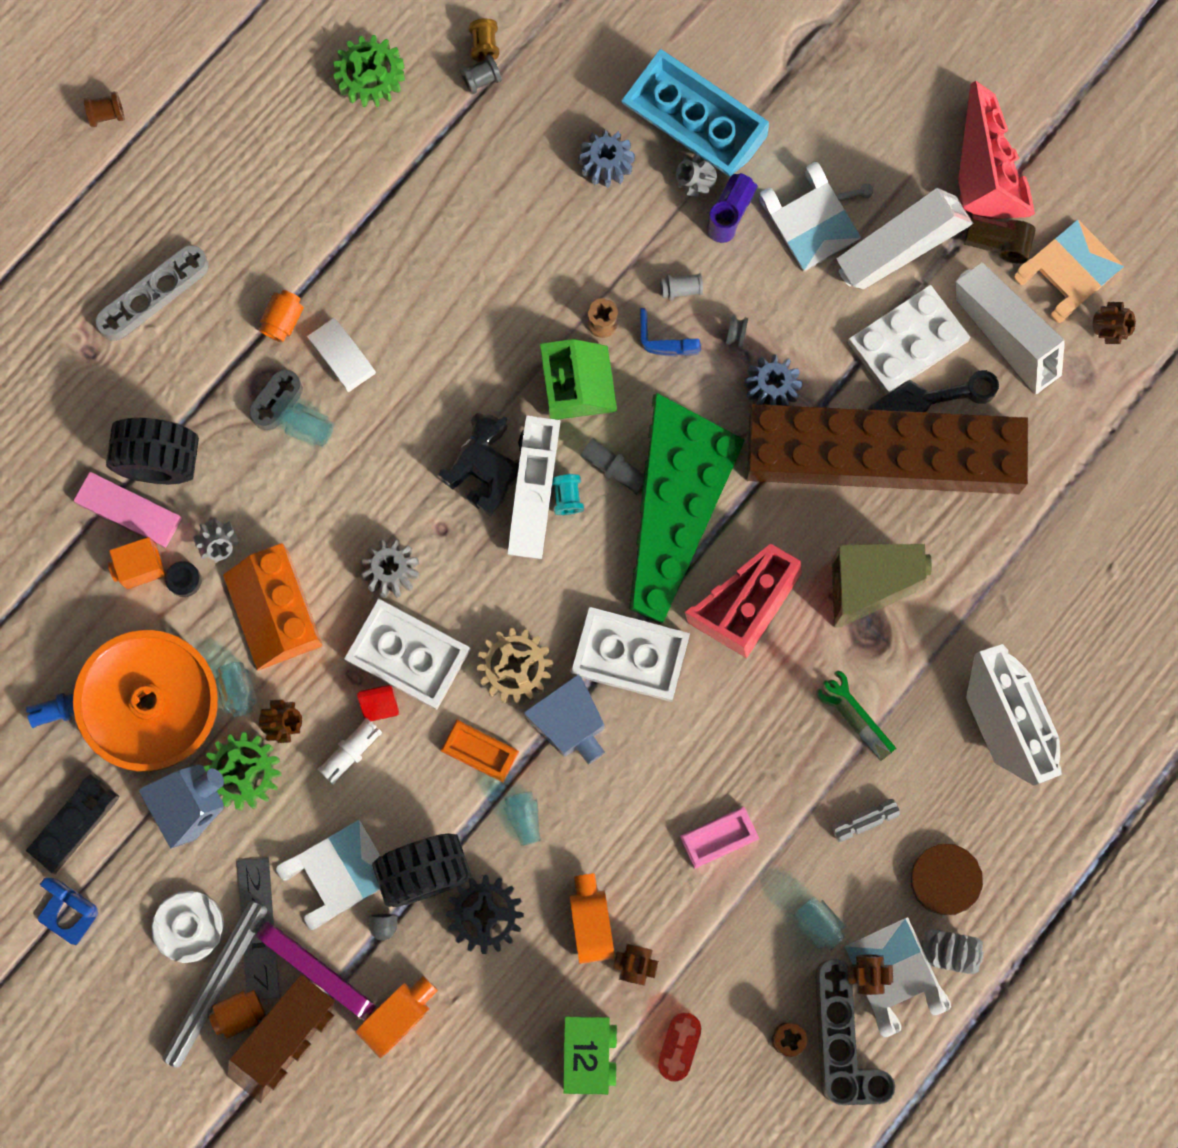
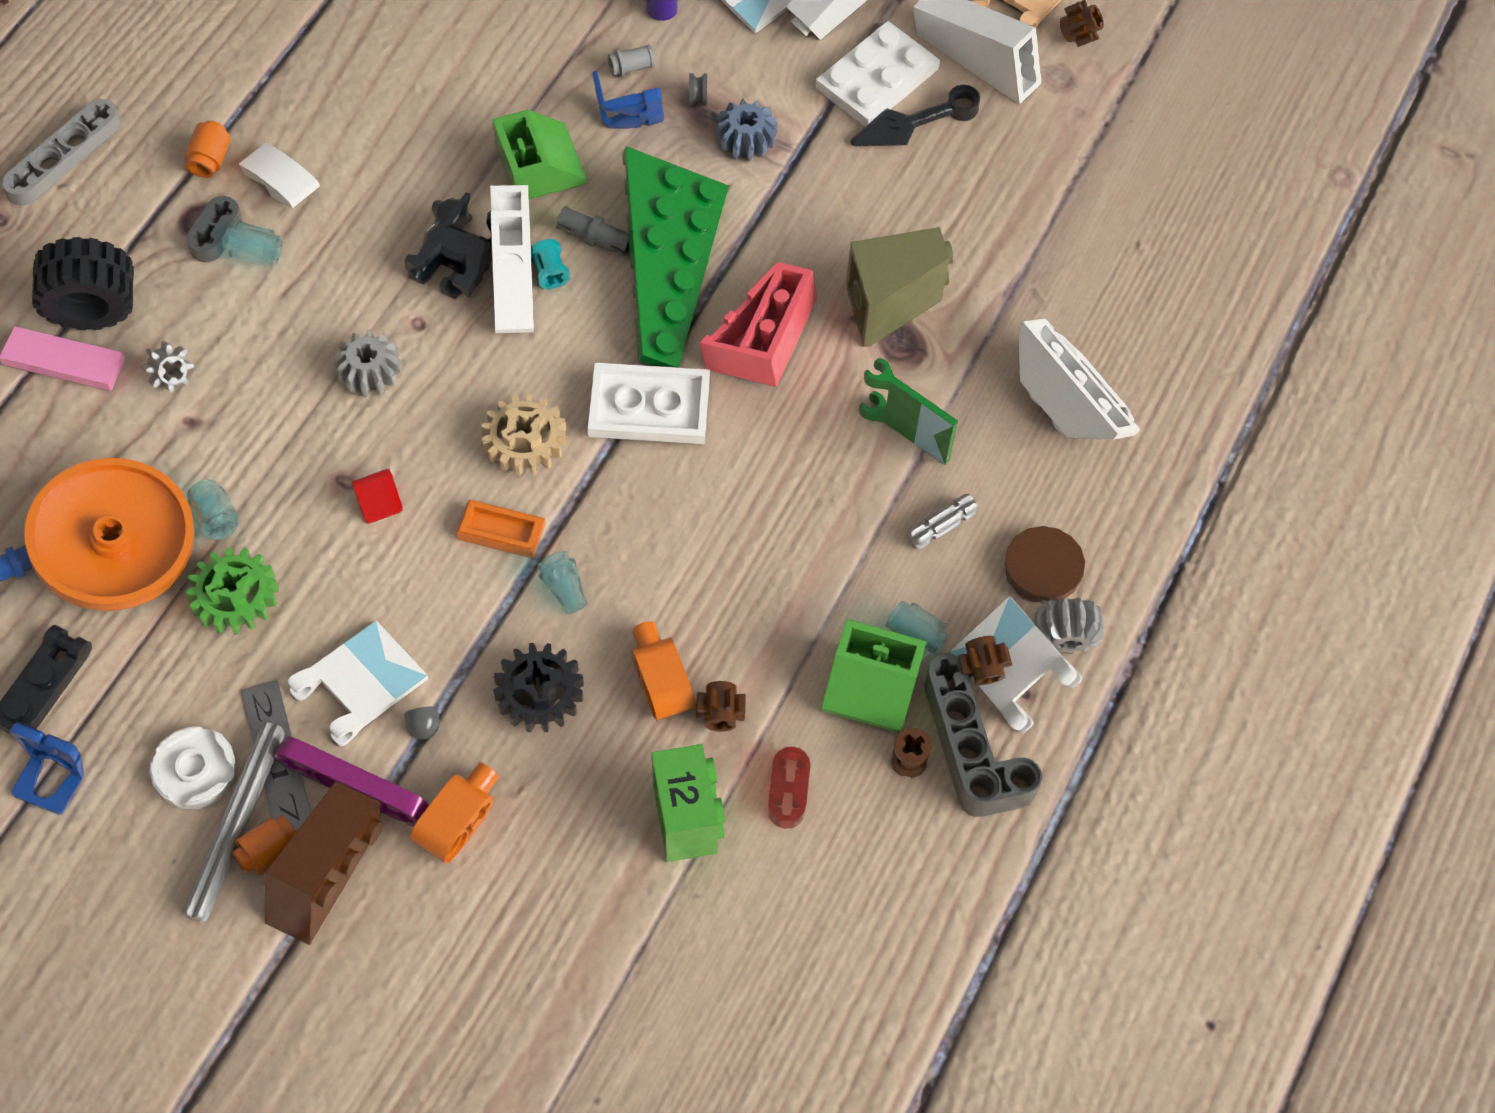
camera: 15 degrees left, 15 degrees down
(136, 563) = (80, 404): orange brick -> none
(183, 579) = (135, 416): black tile -> none
(184, 803) = (170, 627): sand blue torso -> none
(272, 607) = (241, 422): orange slope -> none
(280, 721) = (268, 531): reddish brown gear -> none
(349, 751) = (353, 551): white pin -> none
(407, 654) = (411, 442): white plate -> none
(421, 869) = (456, 642): black tyre -> none
(569, 720) = (594, 476): sand blue torso -> none
(607, 310) = (554, 94): medium nougat bush -> none
(719, 837) = (786, 568): bright pink tile -> none
(771, 965) = (873, 676): none -> bright green slope
(887, 449) = (878, 168): reddish brown brick -> none

